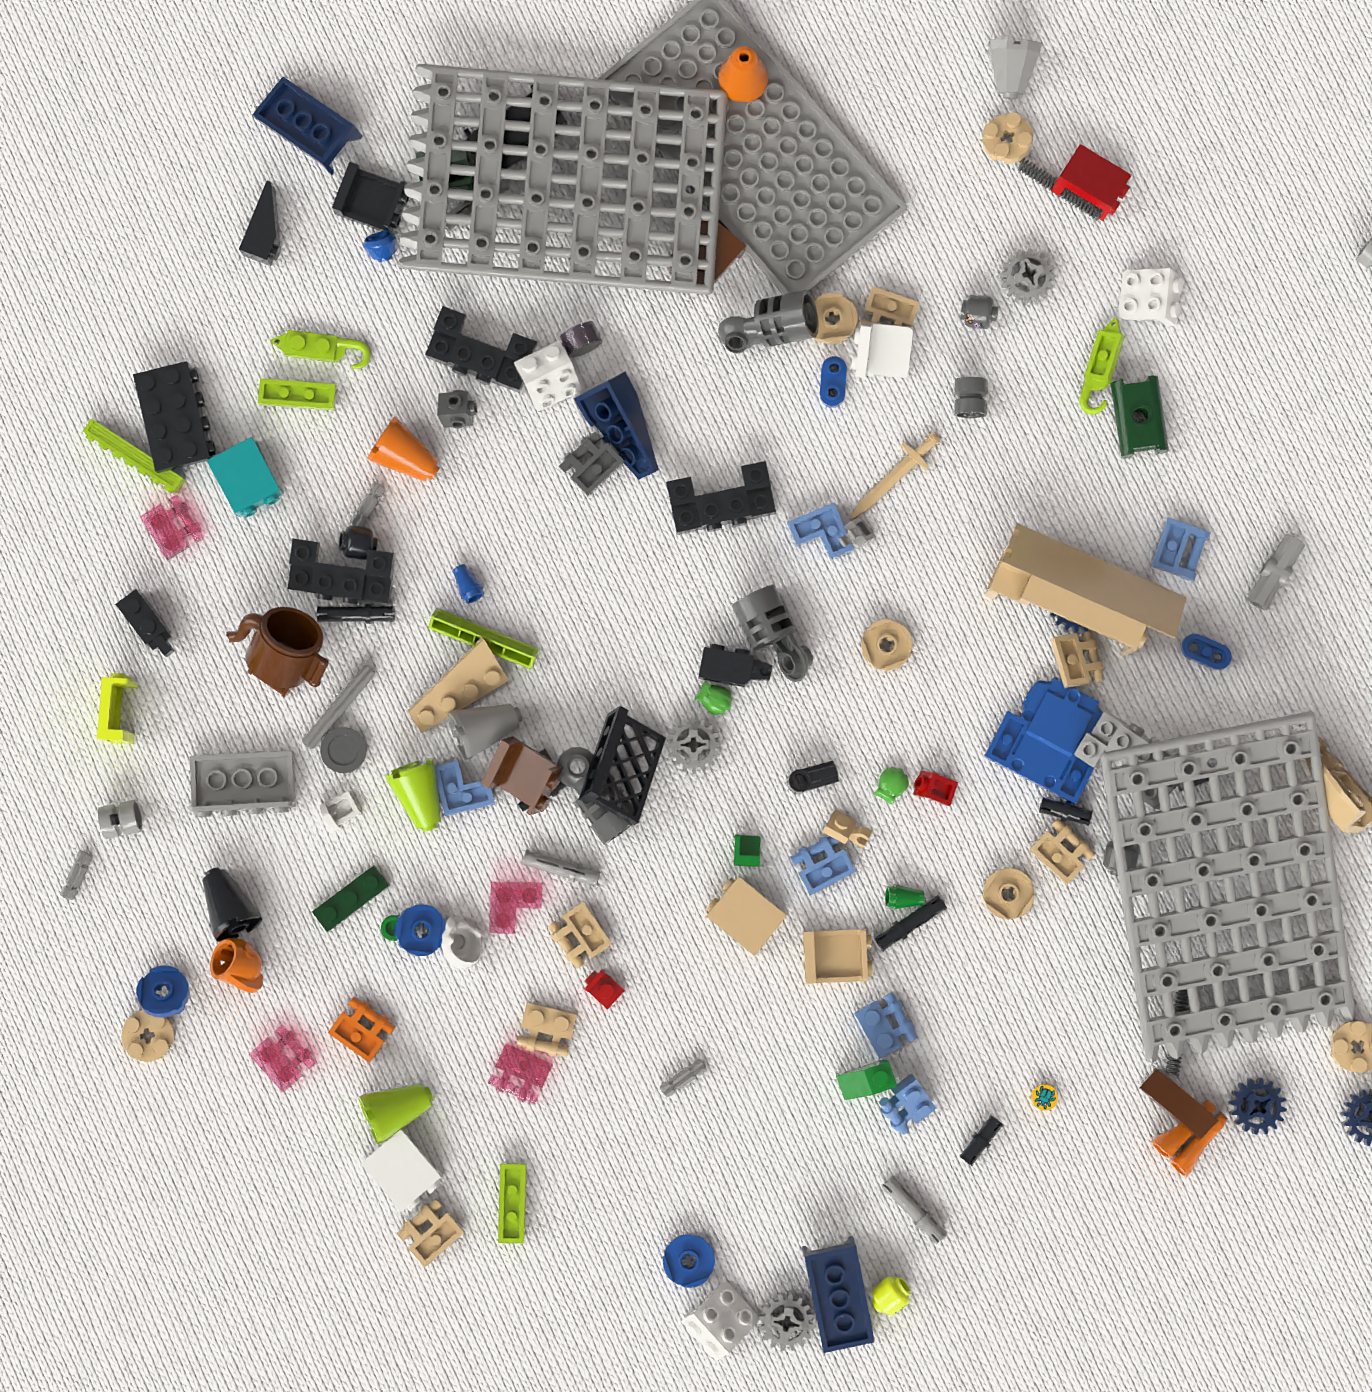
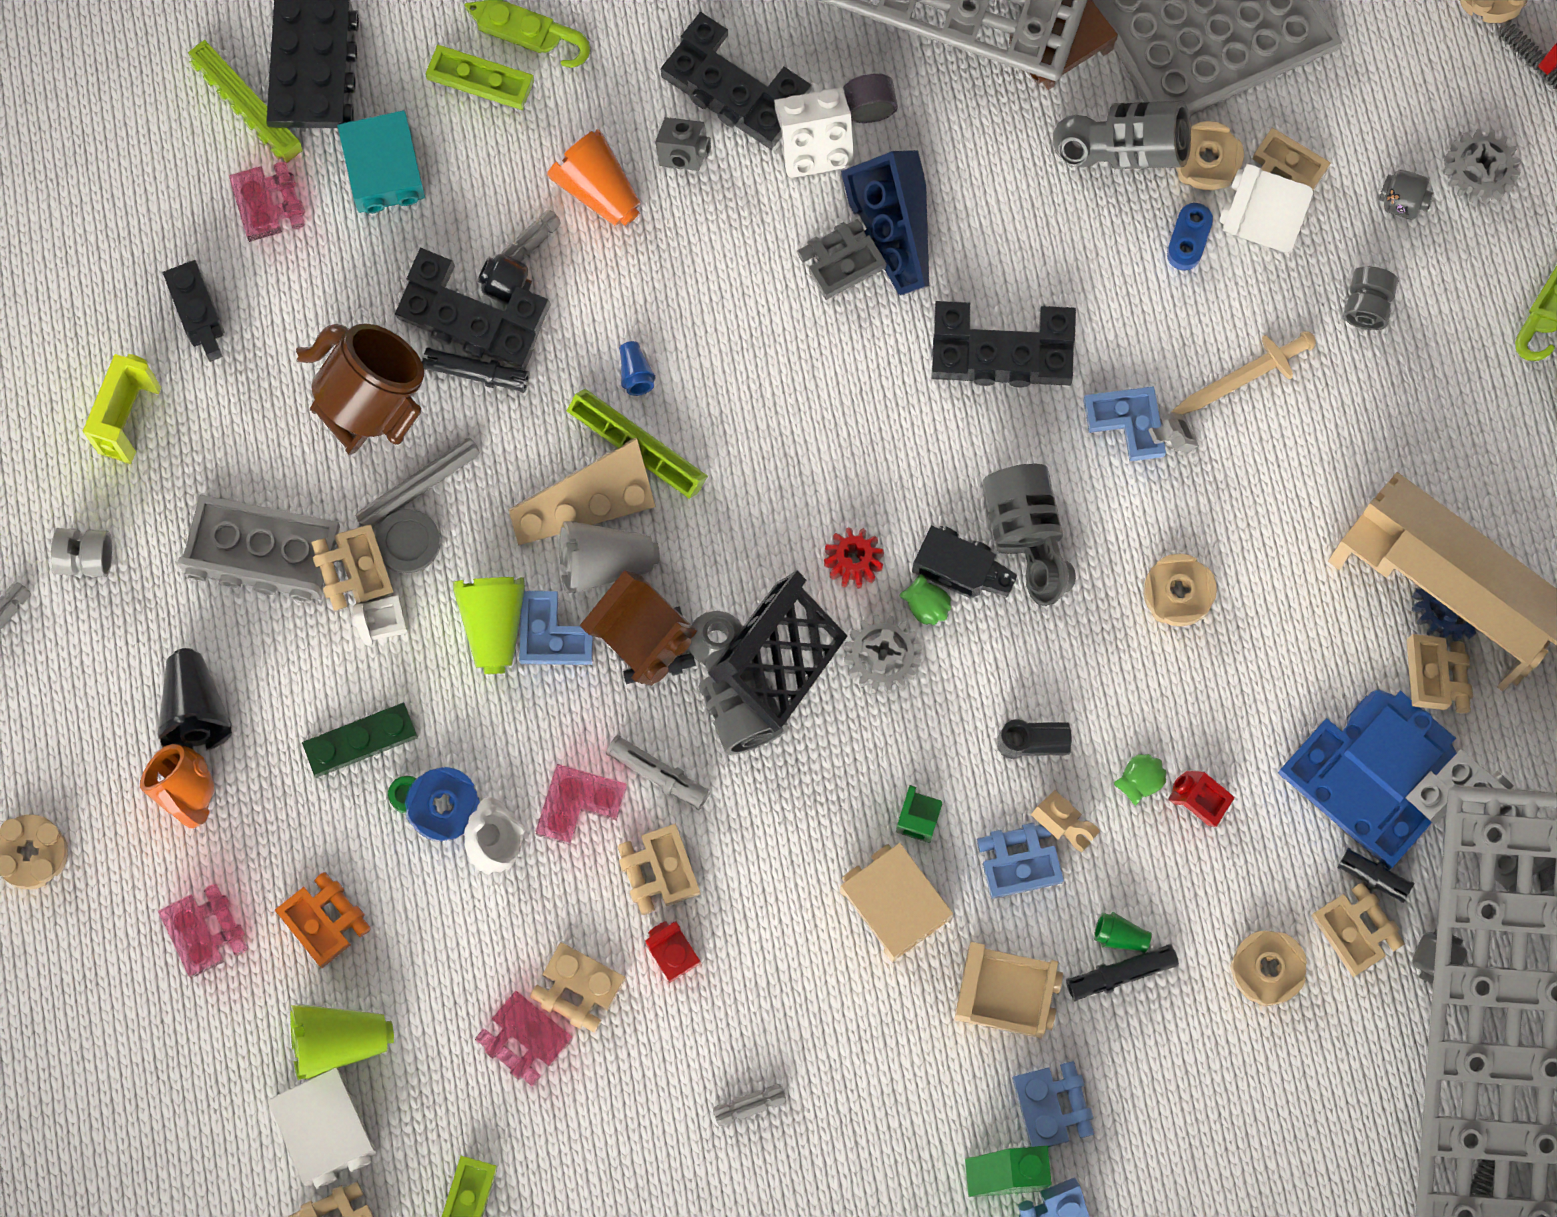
camera: 10 degrees right, 10 degrees down
(173, 1002) = (71, 813): blue plate -> none
(317, 776) = (362, 565): none -> tan plate
(659, 673) = (863, 549): none -> red gear

